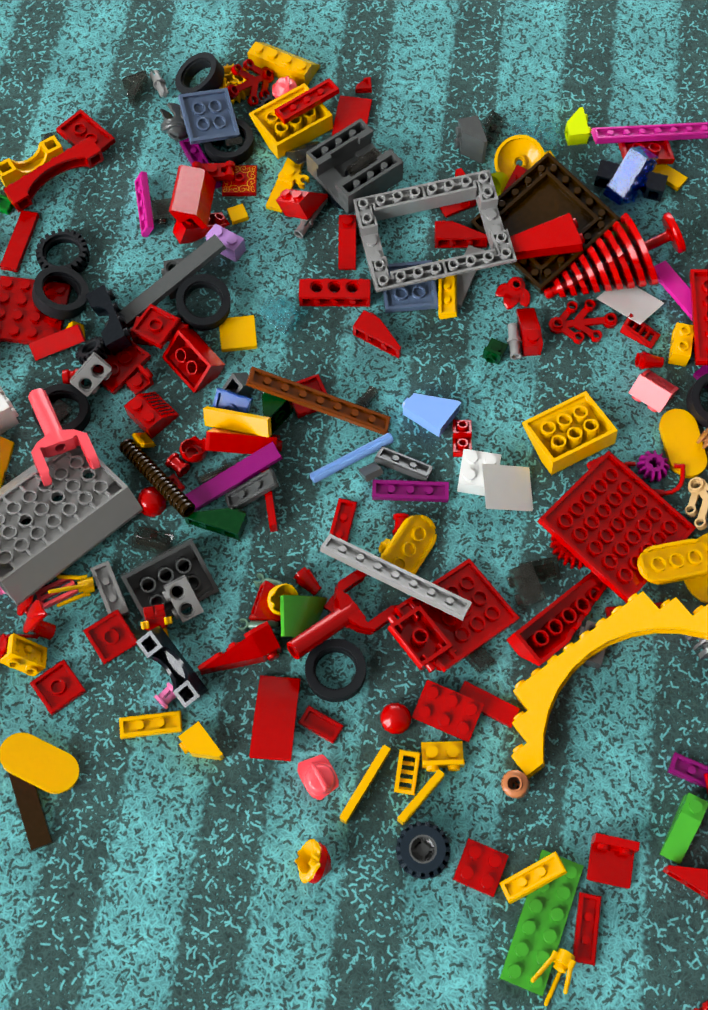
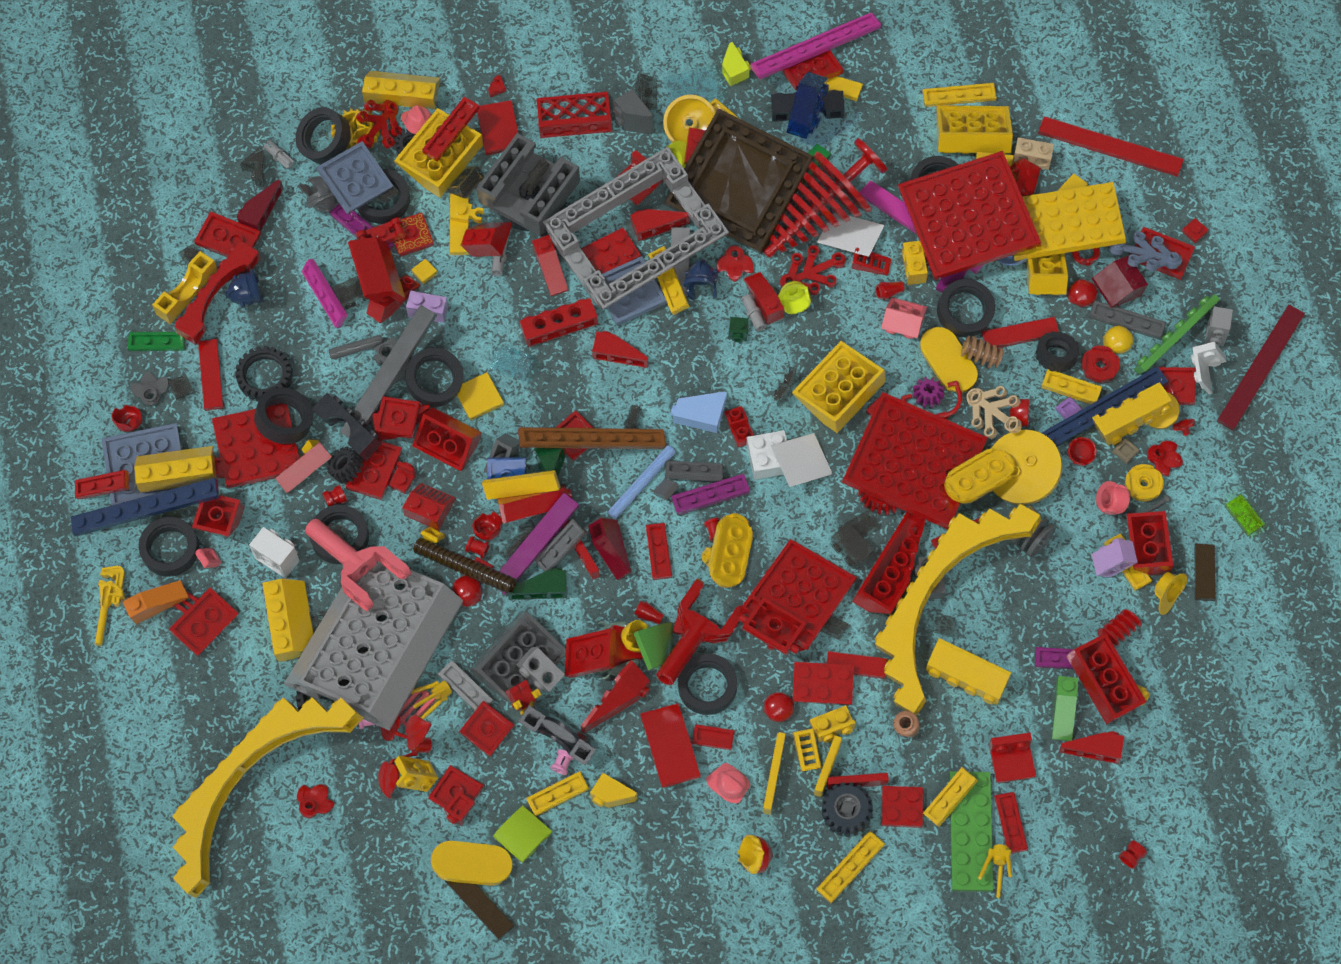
camera: 20 degrees left, 0 degrees up
(50, 704) = (458, 808): none -> red bracket
(74, 178) = (244, 290): none -> dark blue helmet
(86, 372) = (351, 486): light grey brick -> none
(100, 752) = (522, 834): none -> lime slope
(123, 119) = (257, 209): none -> dark red slope
(149, 257) = (355, 347): none -> dark grey axle
(152, 540) = (484, 627): clear smoke slope -> none
(235, 600) = (590, 653): none -> red plate
(297, 503) = (610, 545): none -> dark red slope
(396, 577) = (730, 579): light grey plate -> none
(404, 911) = (850, 867): none -> yellow tile
(406, 247) = (611, 251): none -> red plate
(419, 133) = (574, 125): none -> red fence
(446, 824) = (863, 780): none -> red tile
(478, 292) = (700, 274): none -> dark blue helmet
(515, 420) = (785, 388): none -> clear smoke slope
(549, 239) = (751, 199): red slope -> none
(556, 339) = (794, 297): none -> neon yellow helmet
(590, 697) = (945, 626): none -> clear smoke tile
(596, 753) = (968, 672): none -> yellow slope

